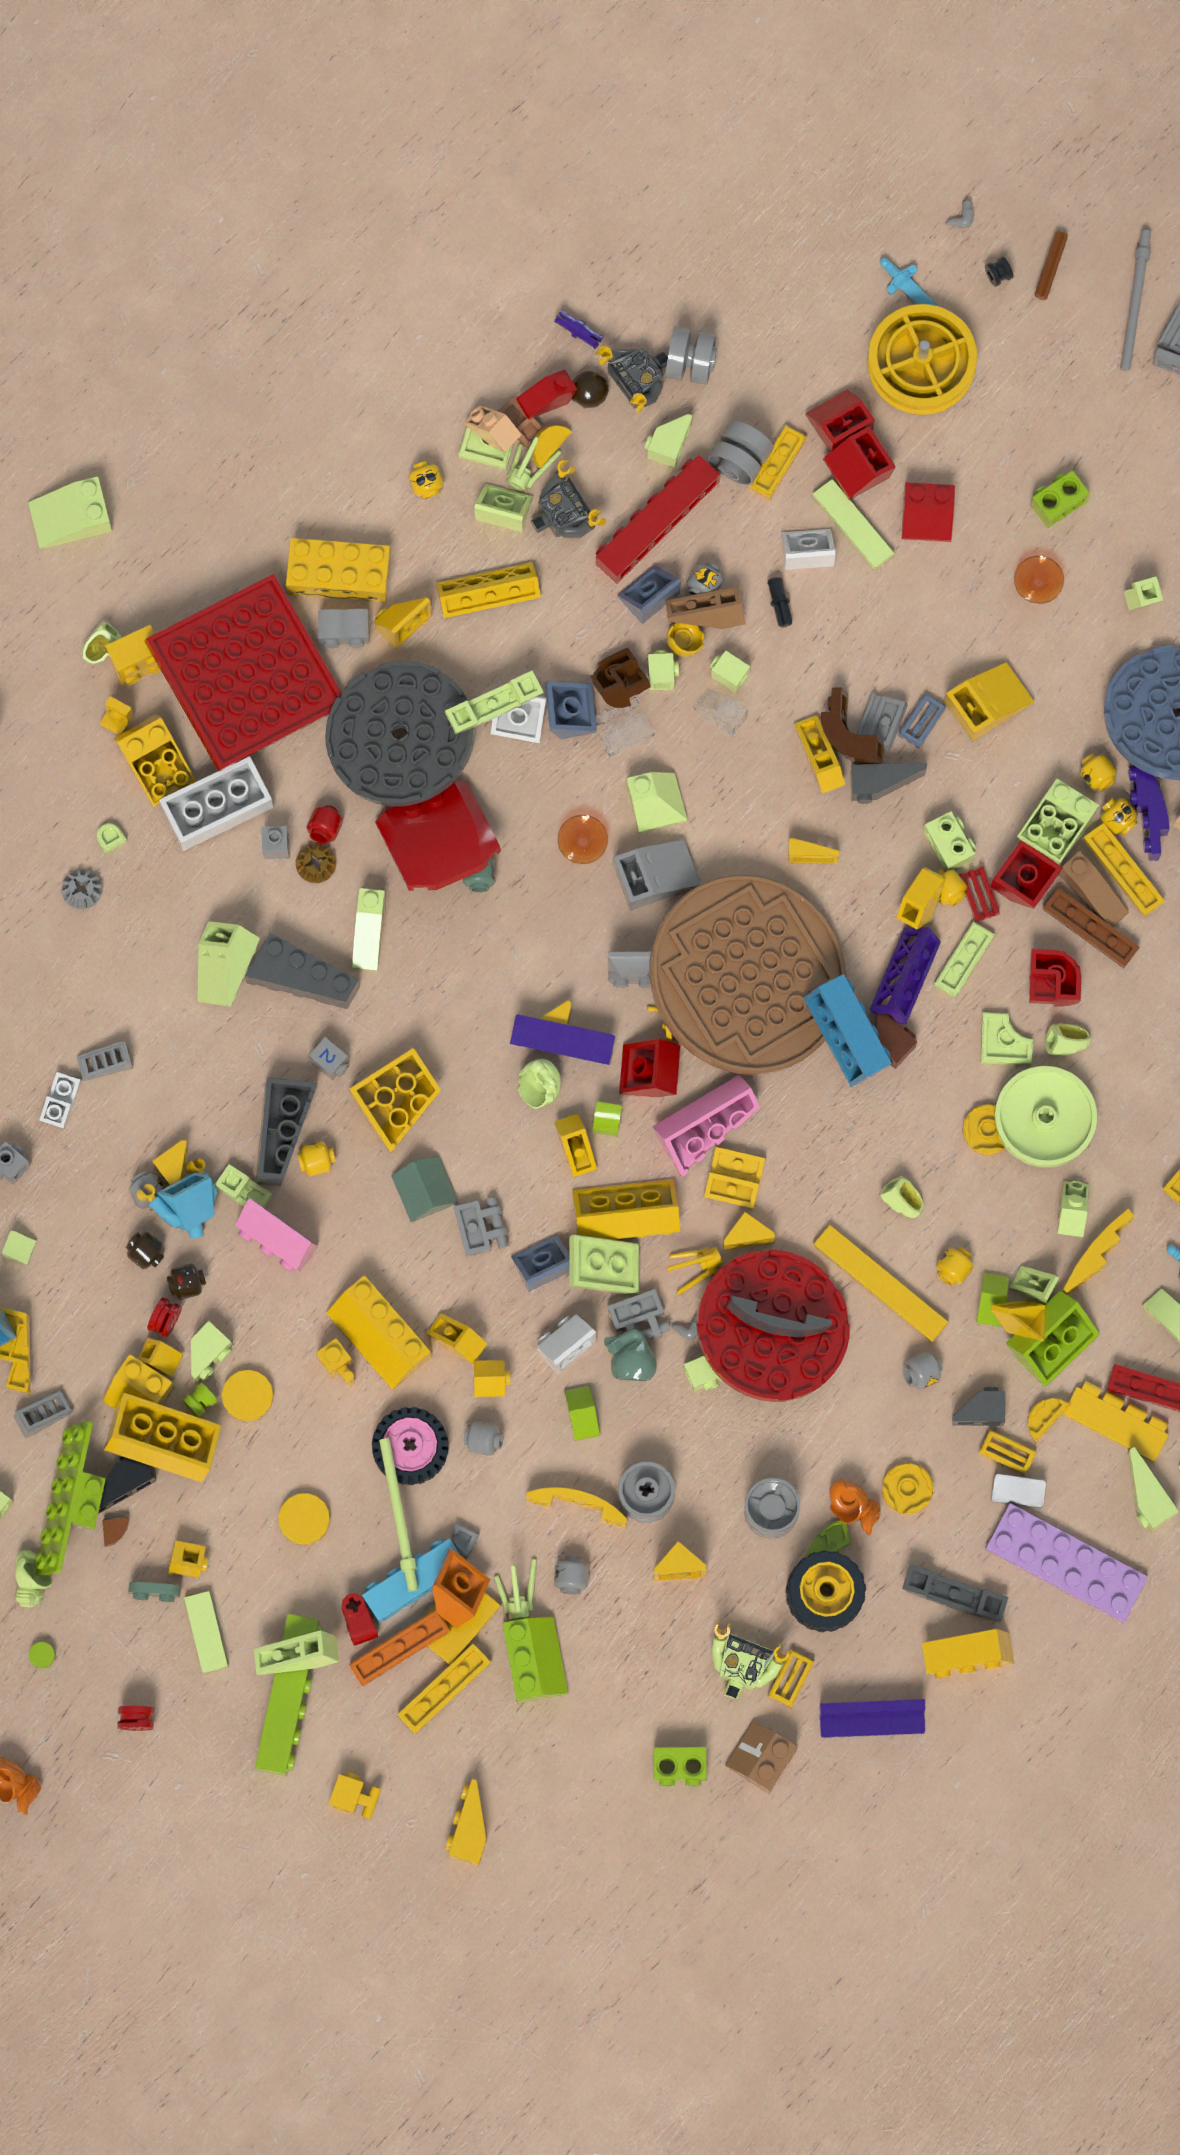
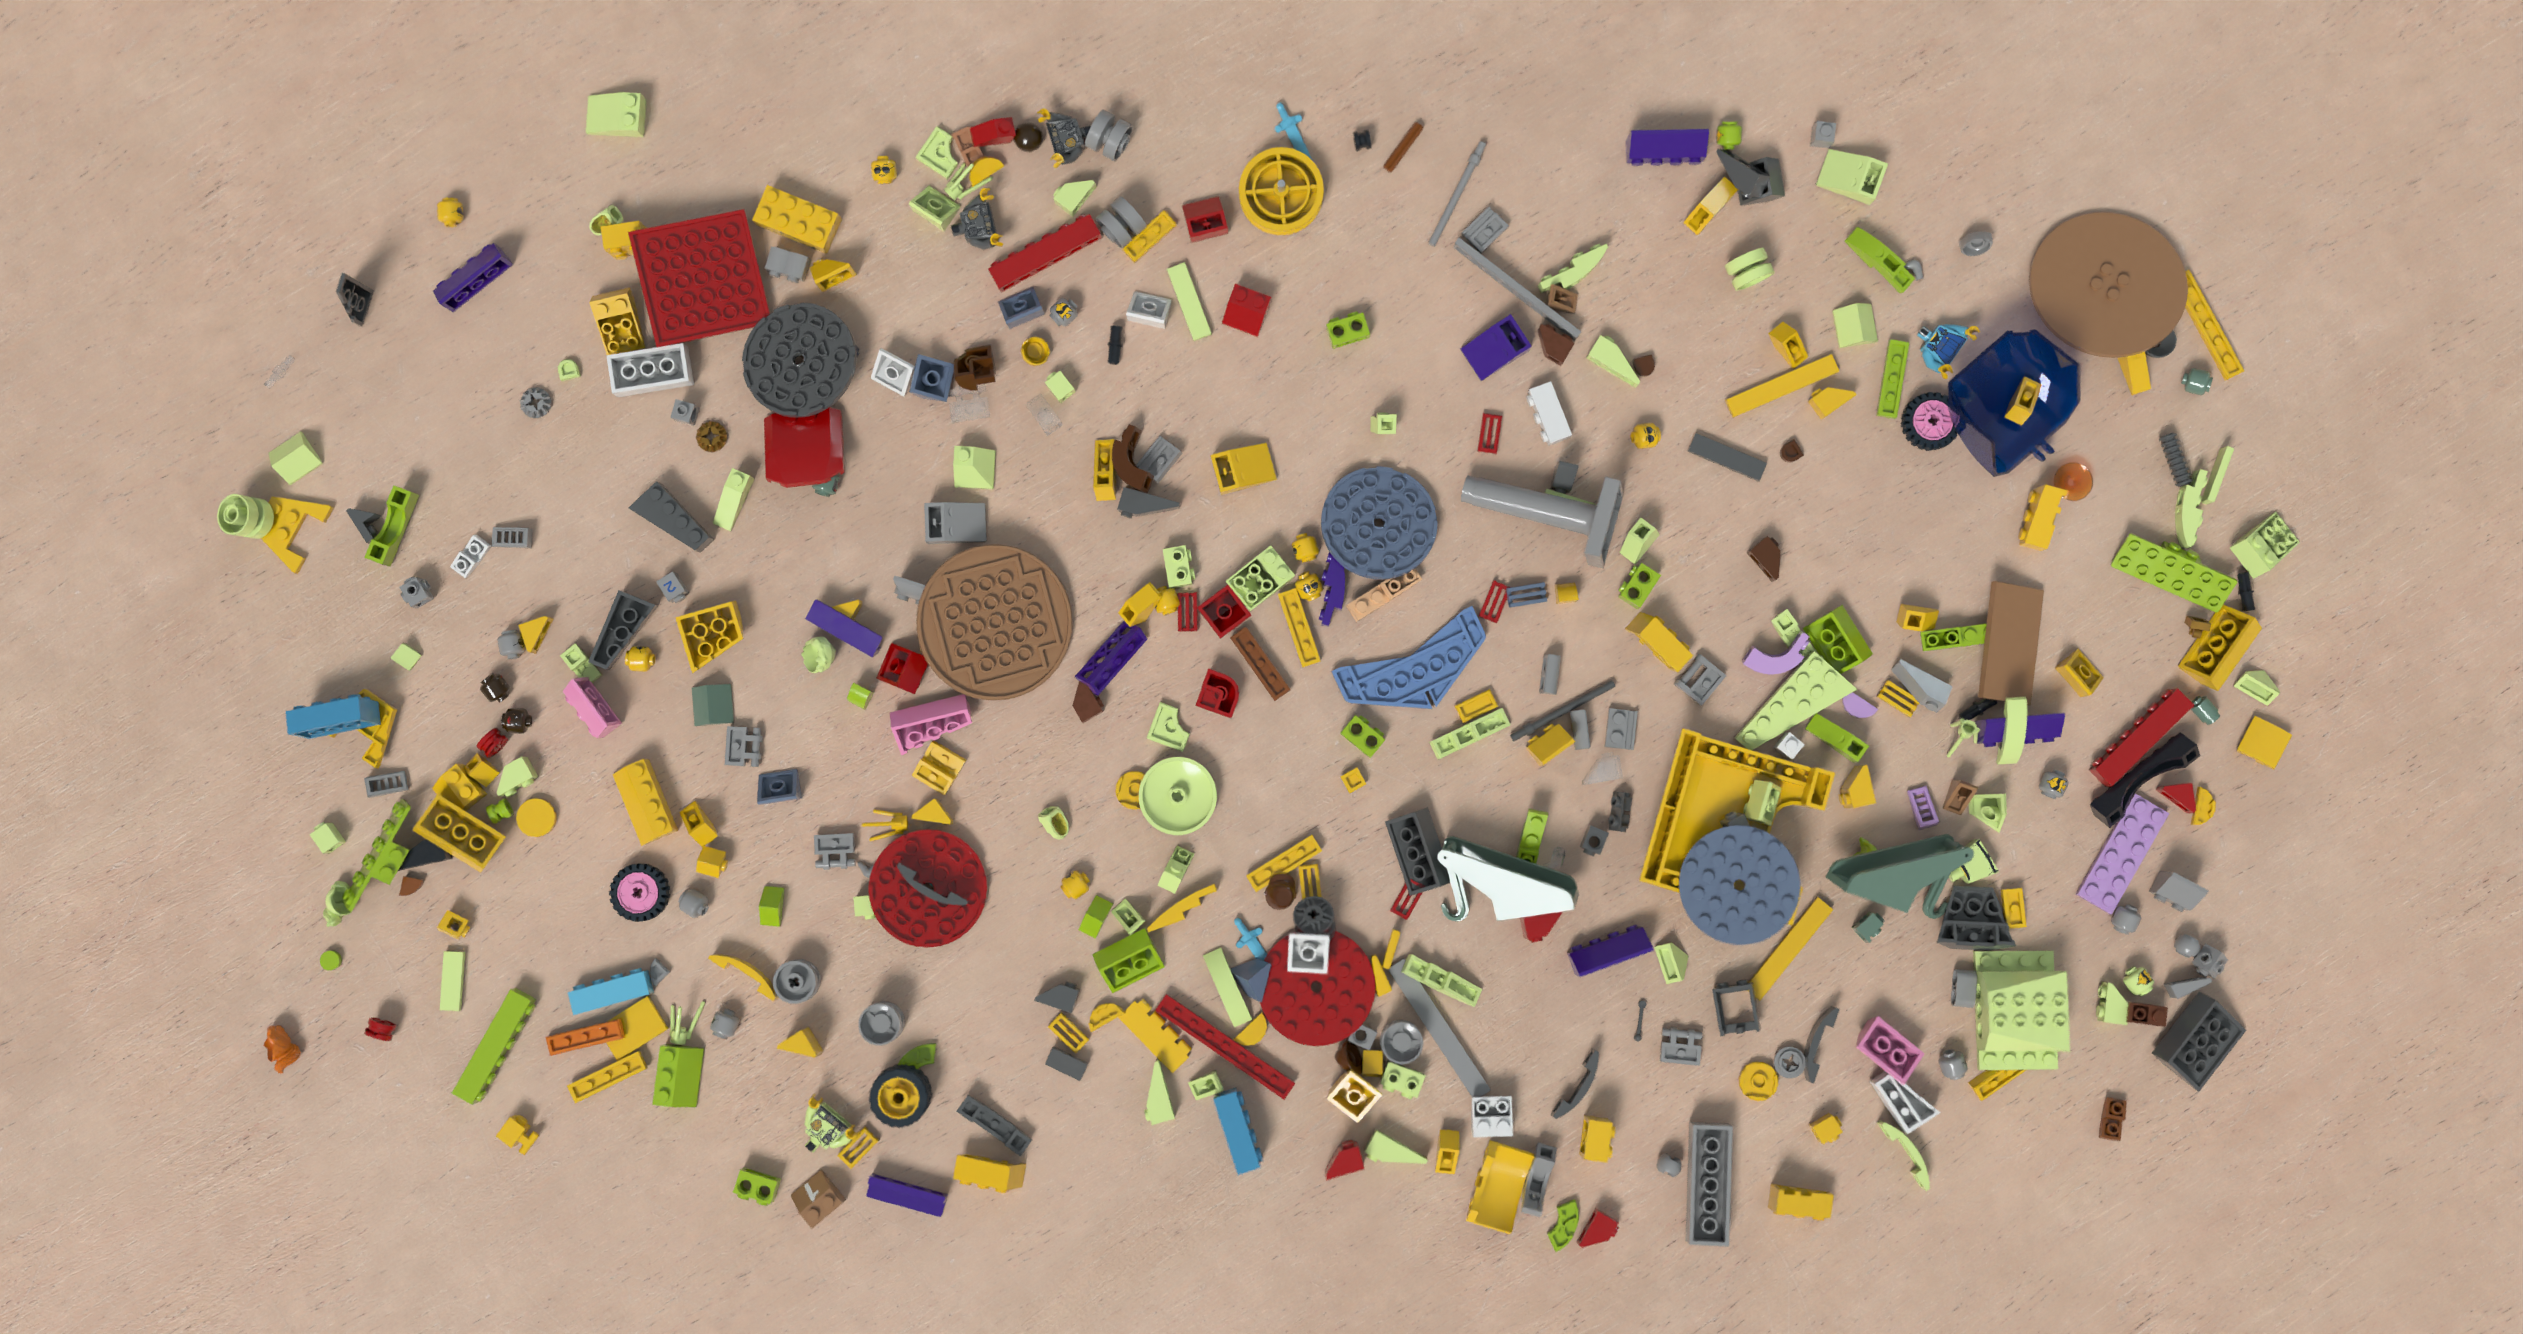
camera: 20 degrees right, 10 degrees up
(117, 716) = (599, 281): yellow bracket -> none
(143, 1590) = (431, 944): sand green plate -> none
(186, 1201) = (533, 663): medium azure torso -> none
(223, 961) = (617, 491): yellowish green slope -> none
(297, 1653) = (504, 1023): yellowish green slope -> none
(304, 1519) = (548, 920): yellow tile -> none
(324, 824) = (725, 409): red head -> none
(336, 1361) = (606, 812): yellow brick -> none
(359, 1624) = (561, 1009): red piece -> none
(407, 1563) = (606, 981): yellowish green bar -> none
(458, 1589) = (636, 1011): orange slope -> none
(470, 1833) = (593, 1186): yellow slope -> none
(488, 592) = (902, 270): yellow fence -> none
(493, 427) = (944, 145): light nougat slope -> none
(494, 703) = (871, 360): yellowish green slope -> none
(566, 1342) = (774, 853): white slope -> none
(575, 1145) = (830, 707): yellow slope -> none
(578, 329) = (1035, 88): dark purple pin -> none
(582, 827) = (903, 473): clear orange dish -> none
(603, 1264) = (819, 805): yellowish green tile -> none
(627, 1210) = (850, 768): yellow slope -> none
(631, 1356) = (818, 879): sand green piece -> none
(662, 670) = (1010, 370): yellowish green brick -> none
(710, 609) = (1059, 335): medium nougat slope -> none
(806, 852) = (1069, 541): yellow slope -> none
(847, 1030) = (1052, 688): dark azure brick -> none
(852, 1504) = (943, 1038): orange hair -> none
(859, 463) = (1207, 257): red slope -> none
(880, 1283) = (1018, 879): yellow tile -> none
(907, 1489) = (987, 1036): yellow tile -> none
(911, 738) = (1195, 473): sand blue tile -> none
(922, 1370) = (1026, 954): light grey head -> none
(964, 959) = (1160, 657): yellowish green tile -> none
(967, 216) = (1354, 88): light grey animal -> none
(1022, 1318) = (1110, 940): yellow slope -> none
(1043, 569) = (1313, 378): clear orange dish -> none
(1066, 1039) = (1213, 742): yellowish green rock -> none
(1066, 1563) = (1083, 1127): lavender plate -> none
(1093, 889) = (1271, 636): medium nougat slope -> none

